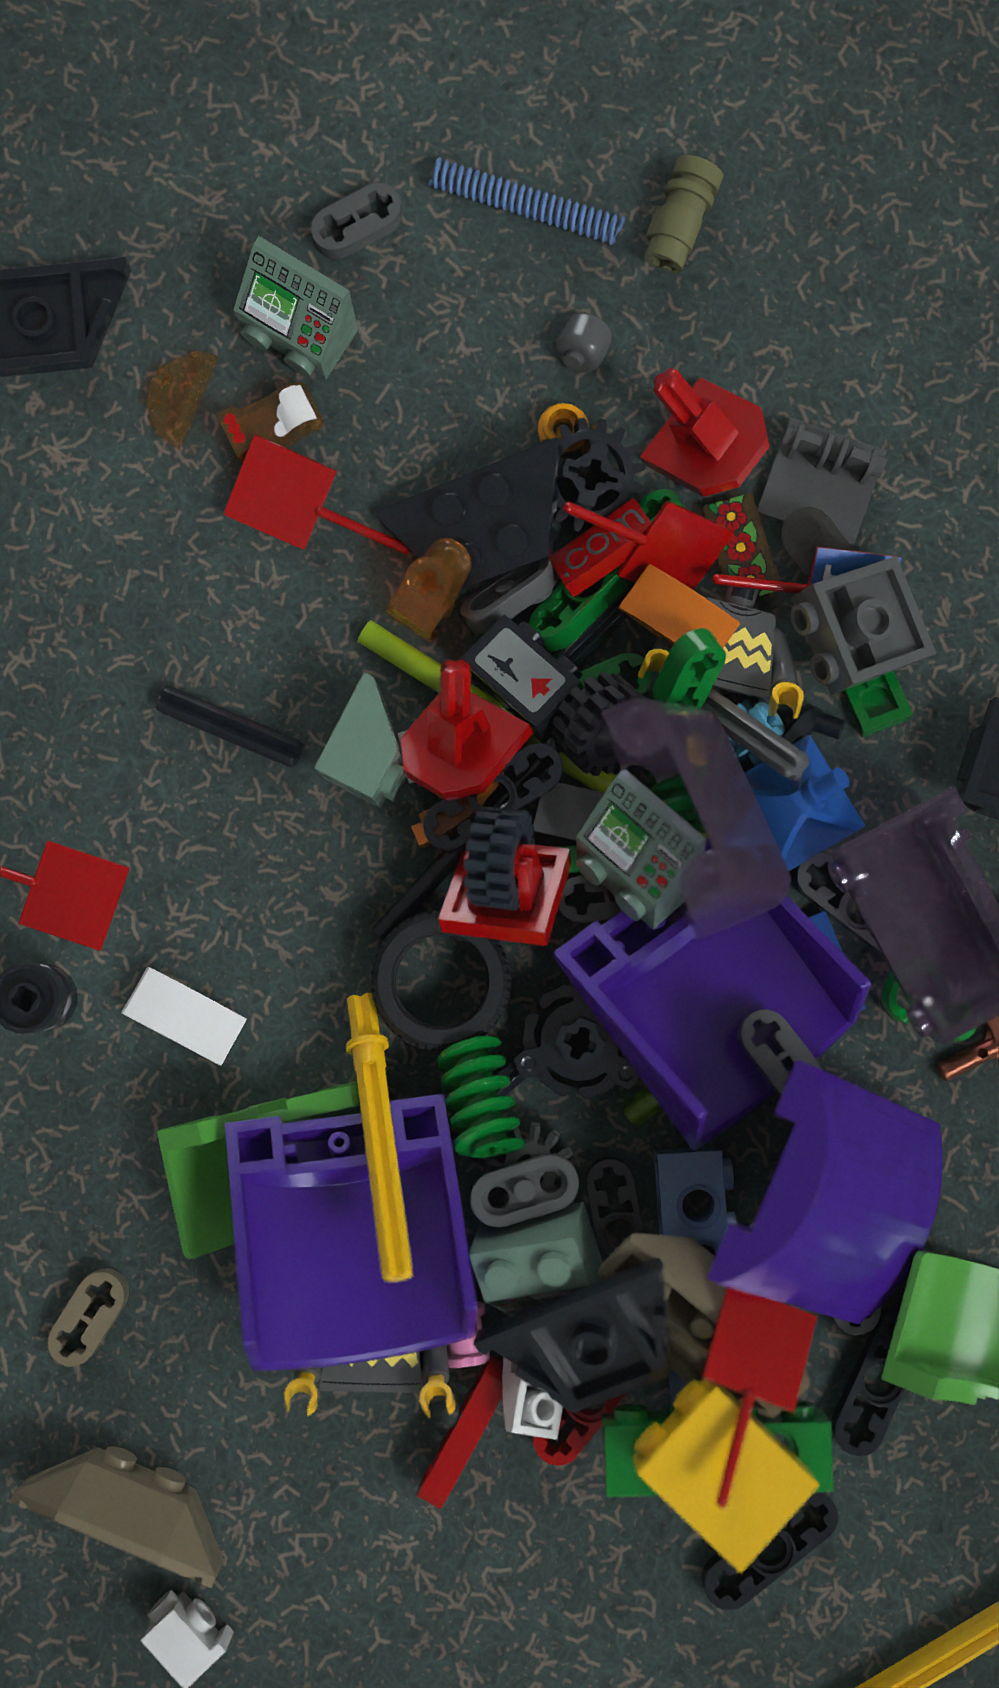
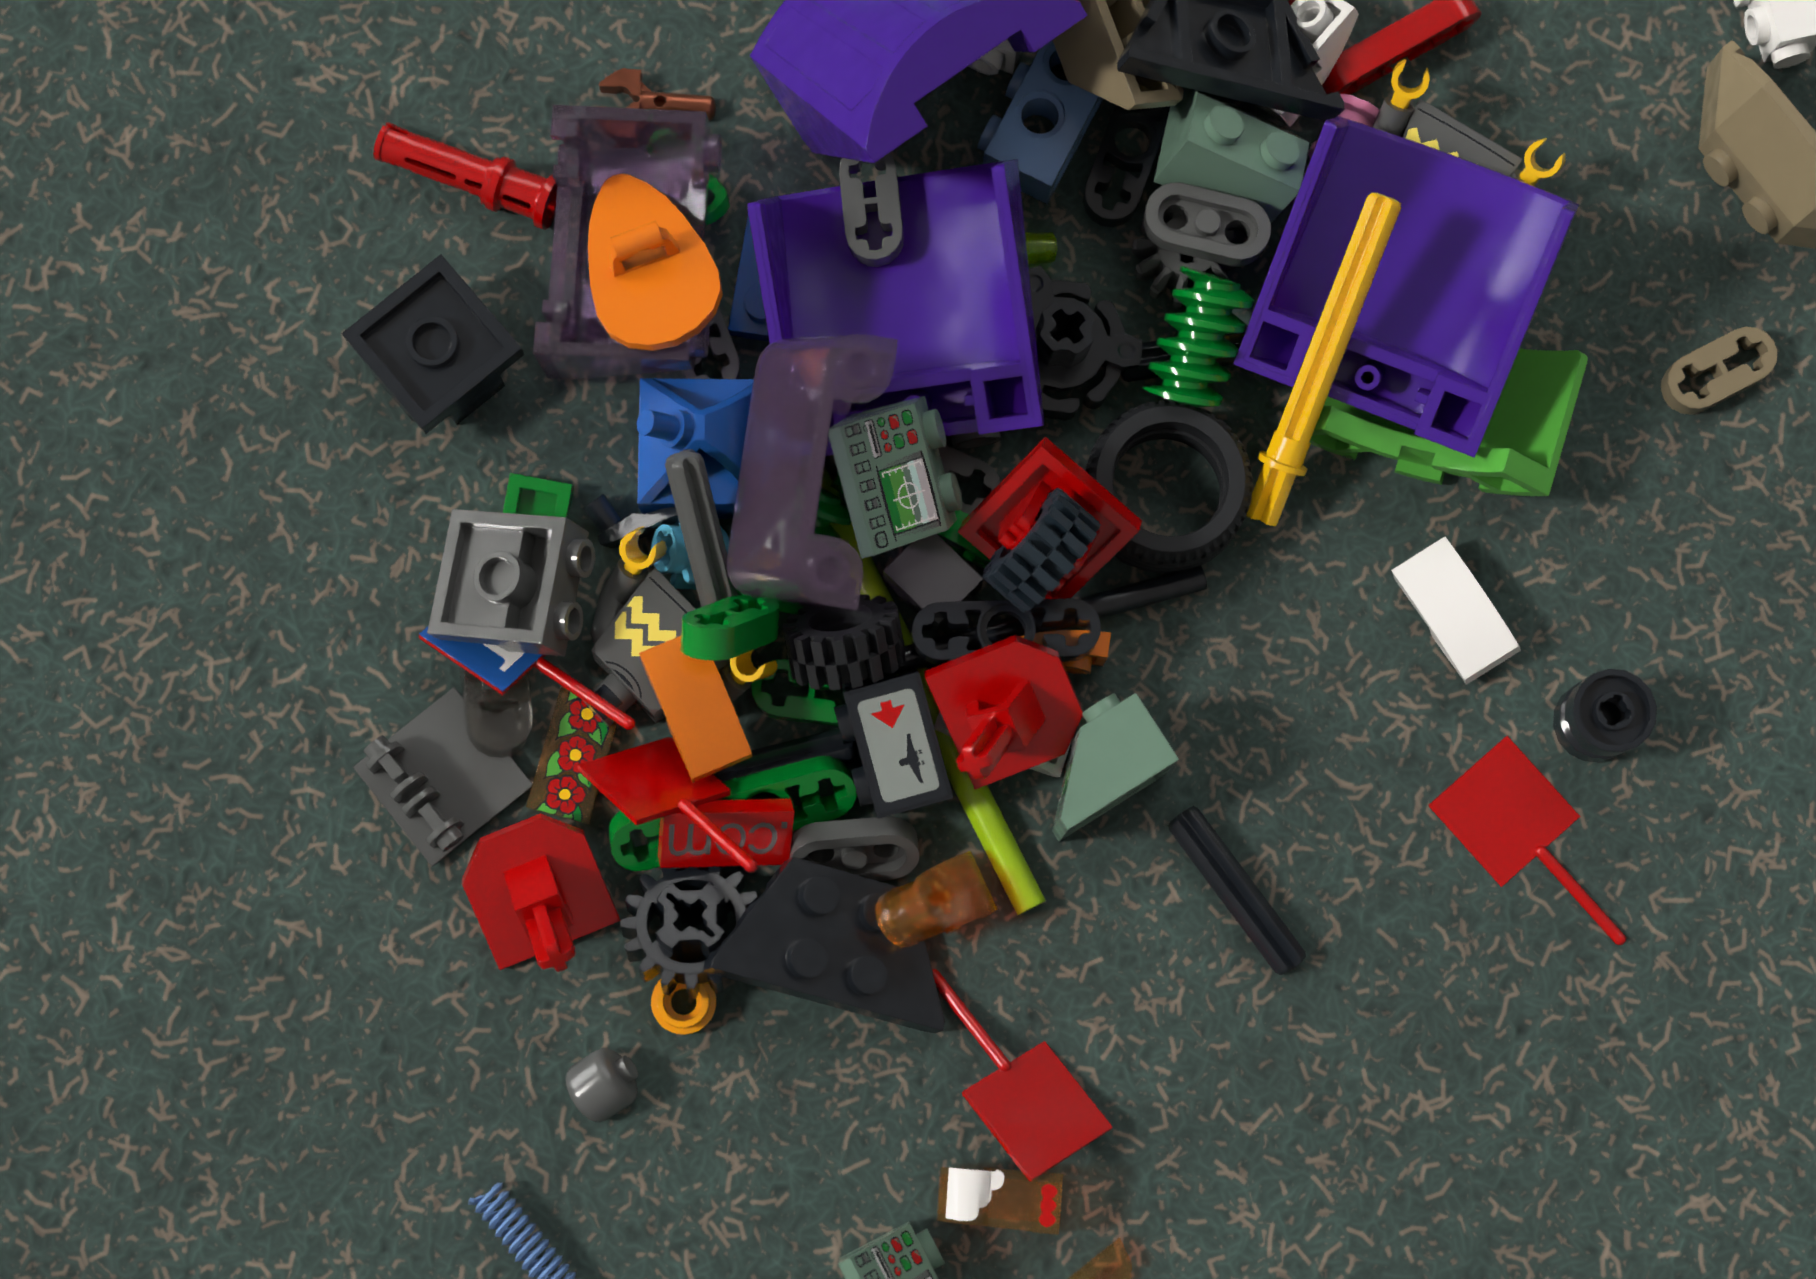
camera: 160 degrees left, 5 degrees down
(679, 220) = (411, 1158): olive axle -> none
(911, 904) = (648, 267): none -> orange shield

